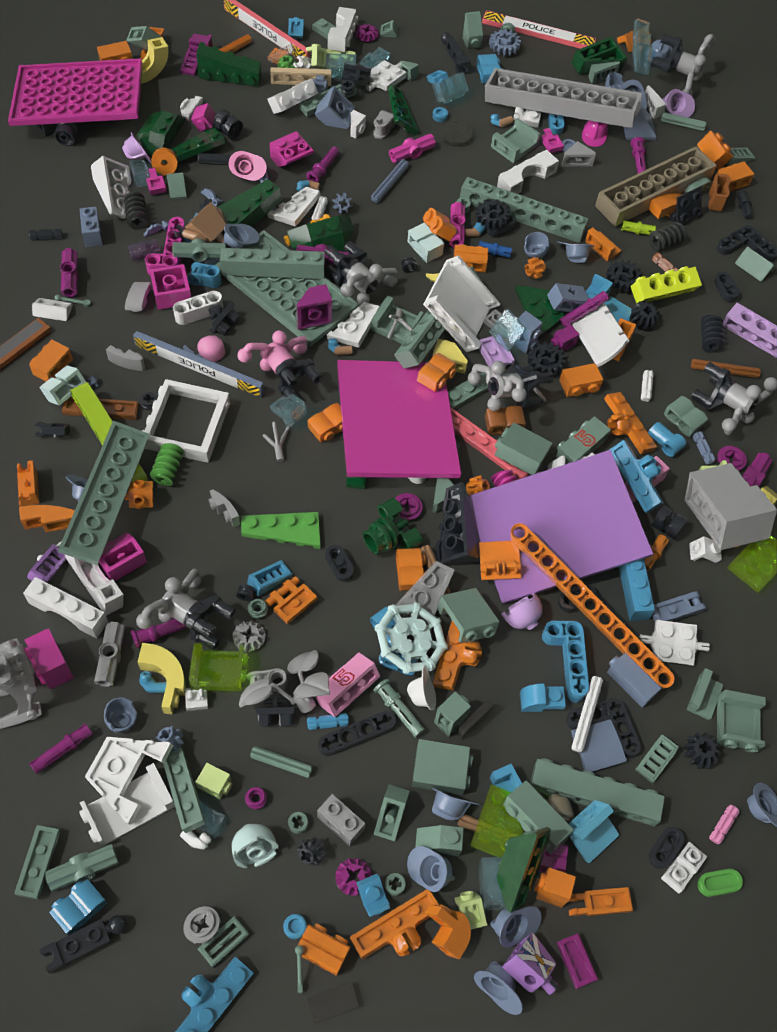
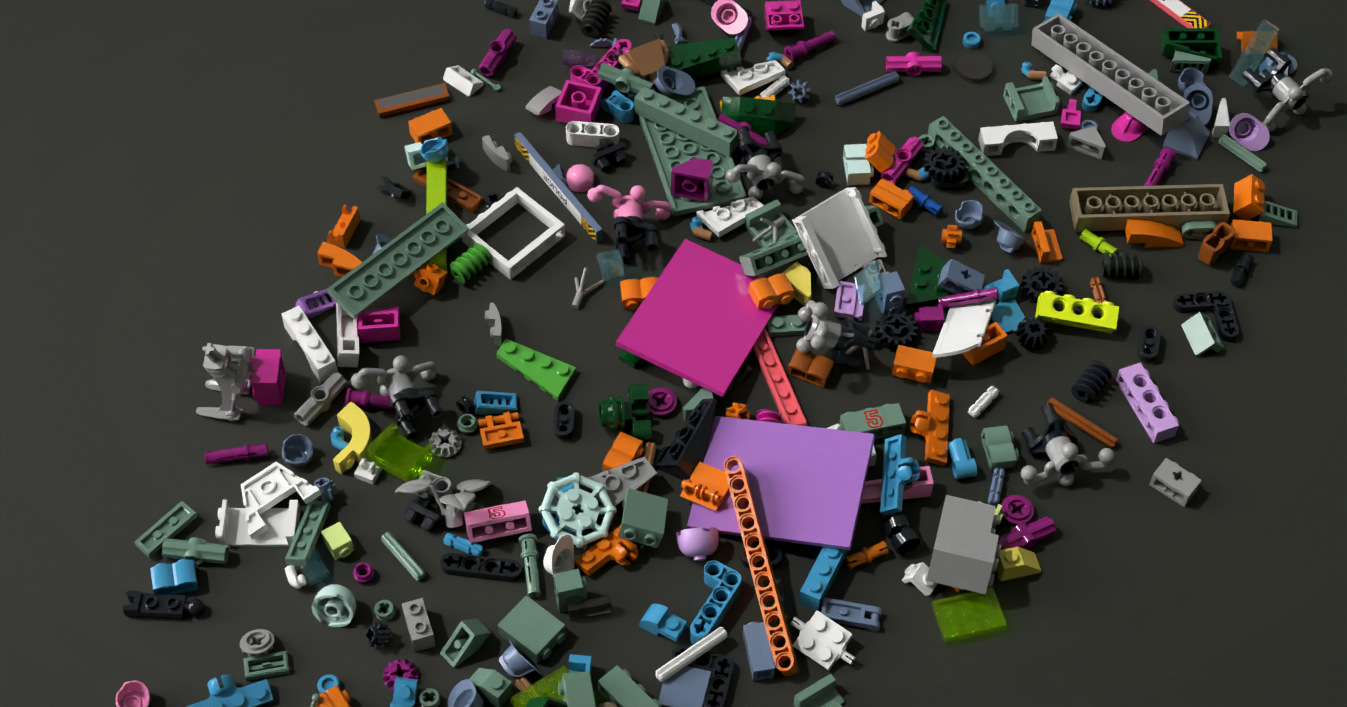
camera: 35 degrees right, 5 degrees down
(74, 377) = (435, 150): none -> dark azure hair
(522, 448) = (805, 399): sand green brick -> none
(688, 206) = (1167, 244): black hinge -> none

